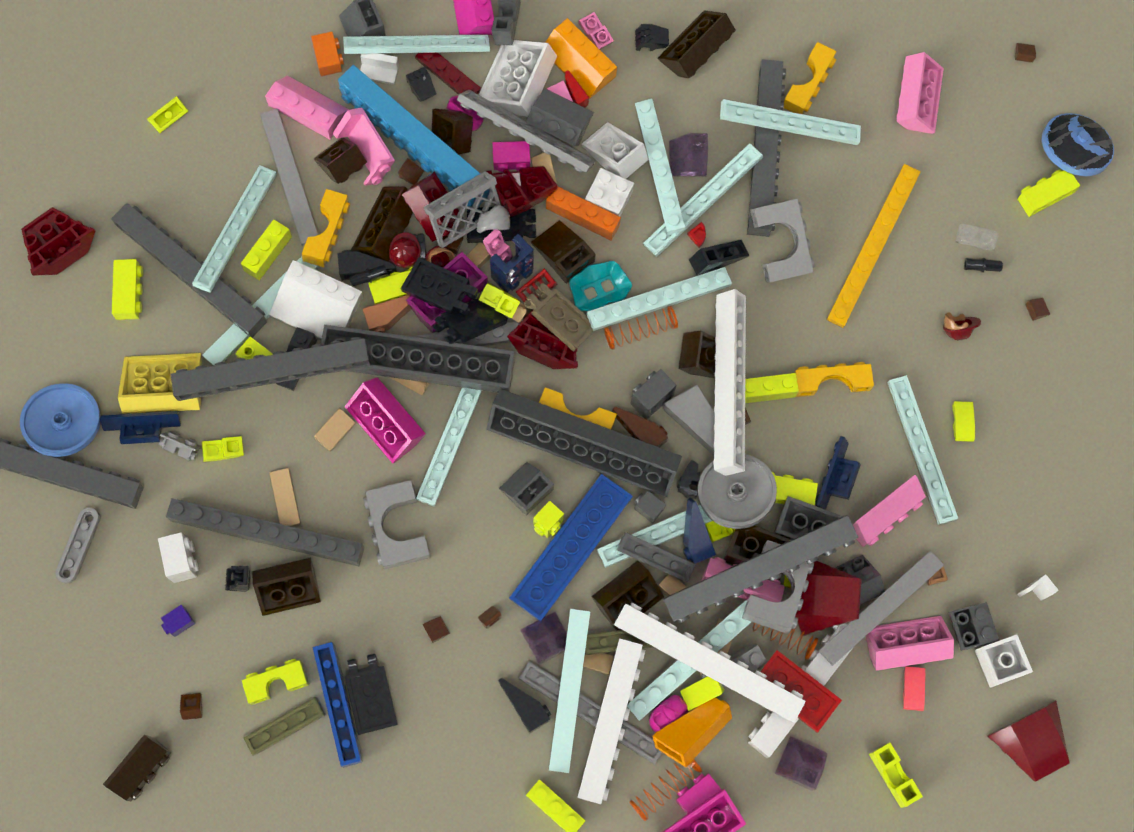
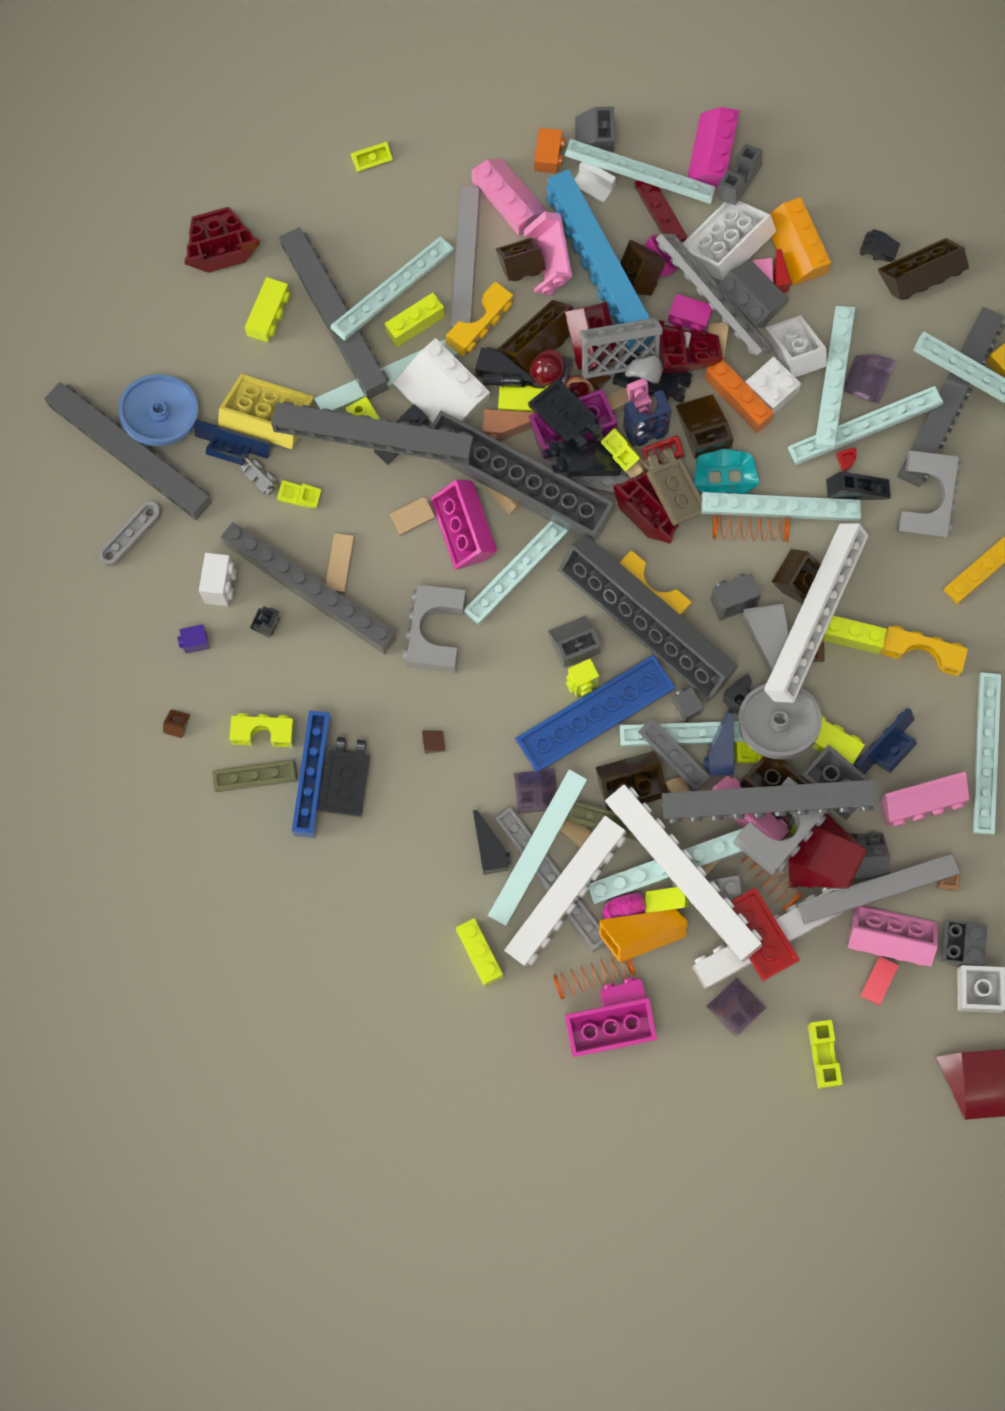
camera: 30 degrees right, 0 degrees up
(138, 768) = (104, 759): dark brown slope -> none
(286, 586) = (307, 646): dark brown slope -> none
(410, 172) = (584, 294): reddish brown slope -> none
(421, 84) = (629, 212): black hand -> none
(490, 617) = (489, 750): reddish brown slope -> none
(595, 31) = (825, 220): bright pink slope -> none
(641, 428) = (711, 625): reddish brown slope -> none

